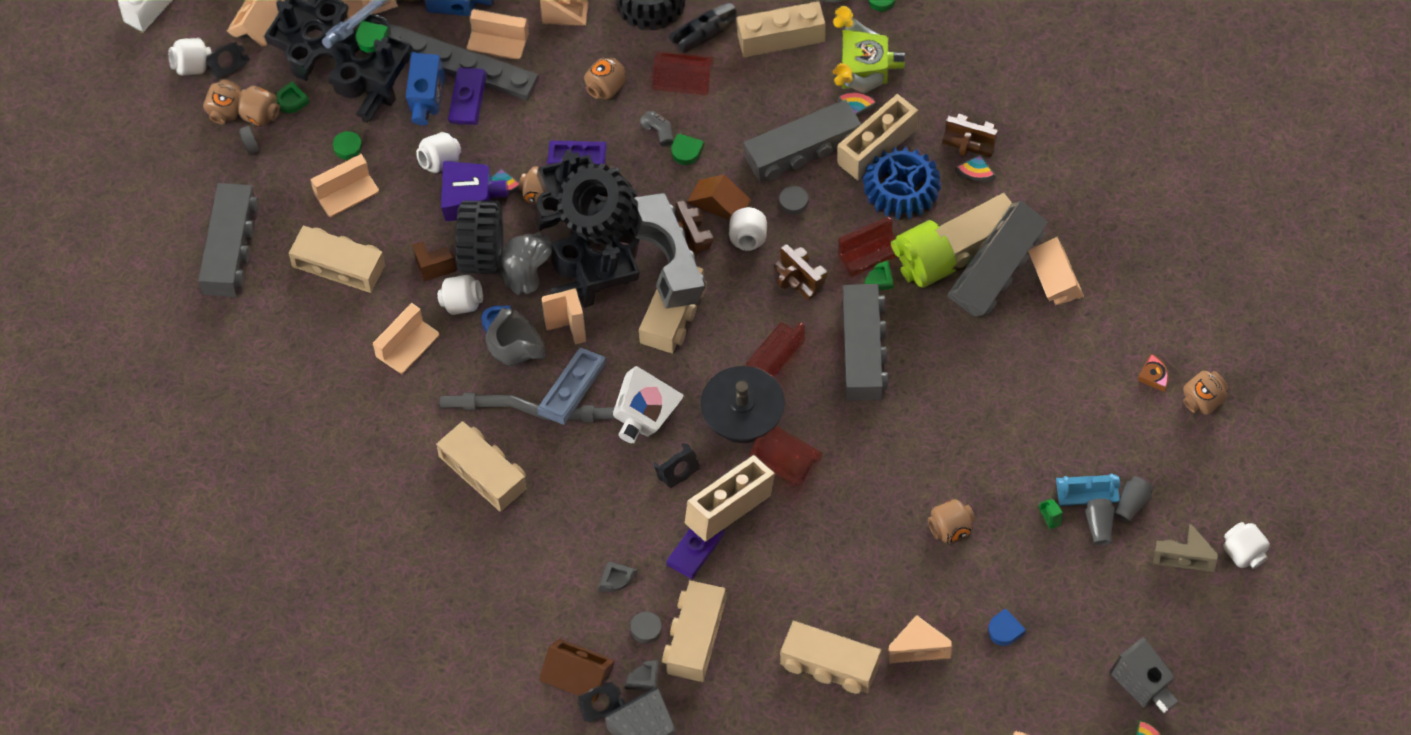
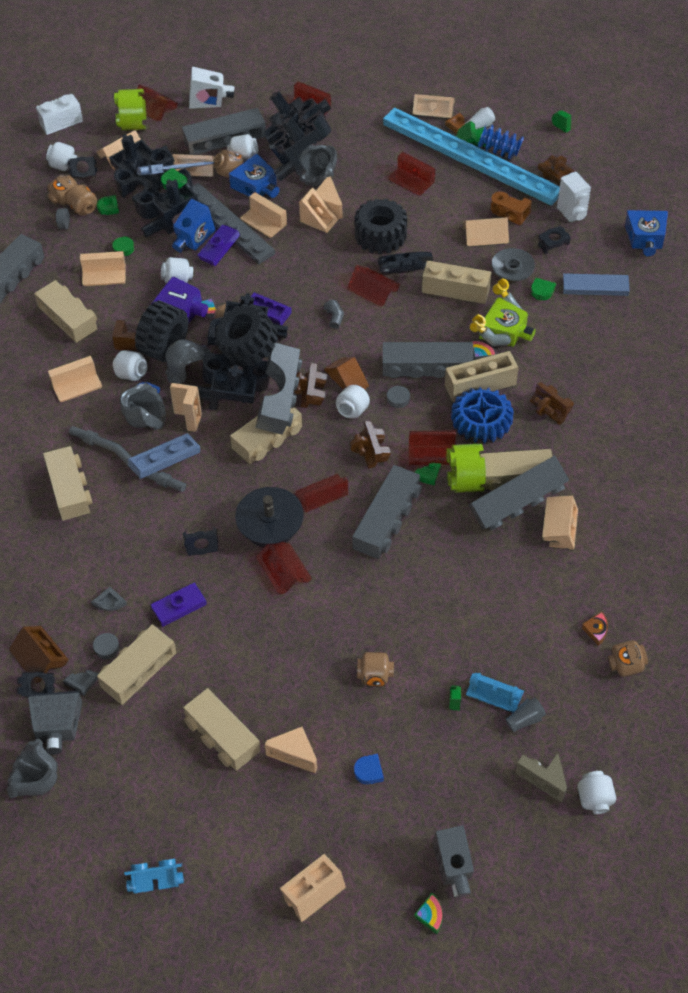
camera: 25 degrees right, 5 degrees down
(605, 78) = (316, 268): medium nougat head -> none
(643, 404) = (202, 488): white torso -> none
(686, 149) = (344, 335): green tile -> none
(729, 498) = (218, 578): tan brick -> none
(976, 170) = (542, 428): tile -> none
(1100, 520) = (490, 720): dark grey cone -> none

